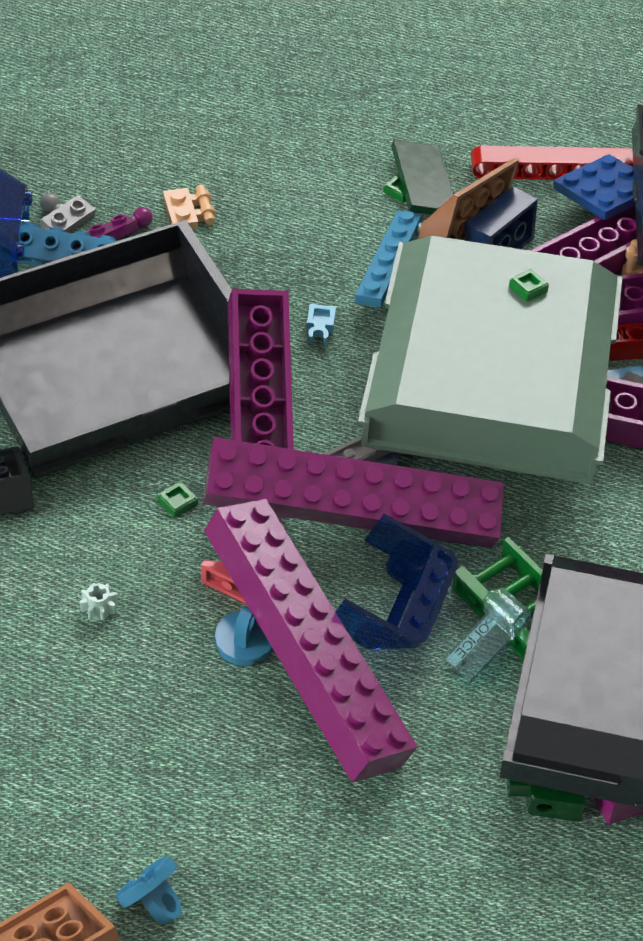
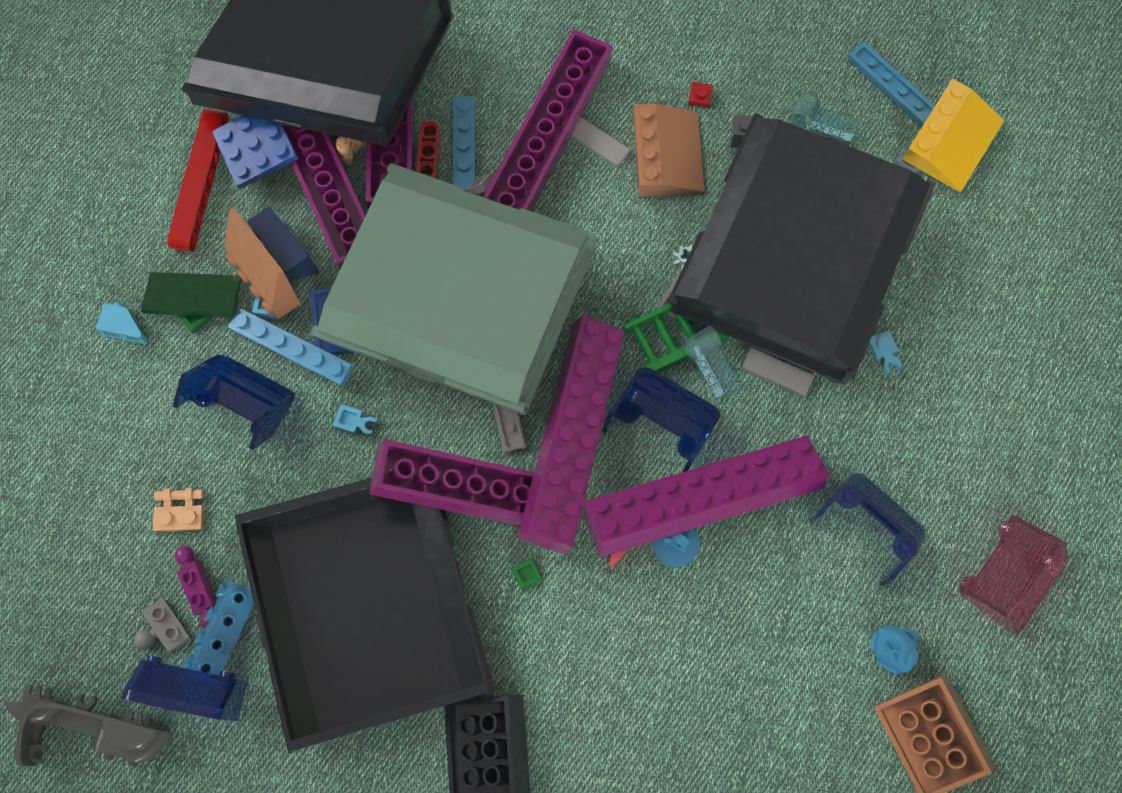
camera: 75 degrees left, 25 degrees up
(98, 601) = (633, 647): light aqua gear -> none
(318, 885) = (863, 492): none -> clear blue windscreen
(334, 223) = (239, 390): none -> clear blue windscreen
(376, 133) = (120, 323): none -> medium azure slope
(497, 723) = (777, 372): none -> light grey tile
(528, 285) = (406, 239): green tile -> none
(573, 846) = (884, 348): none -> medium azure plate

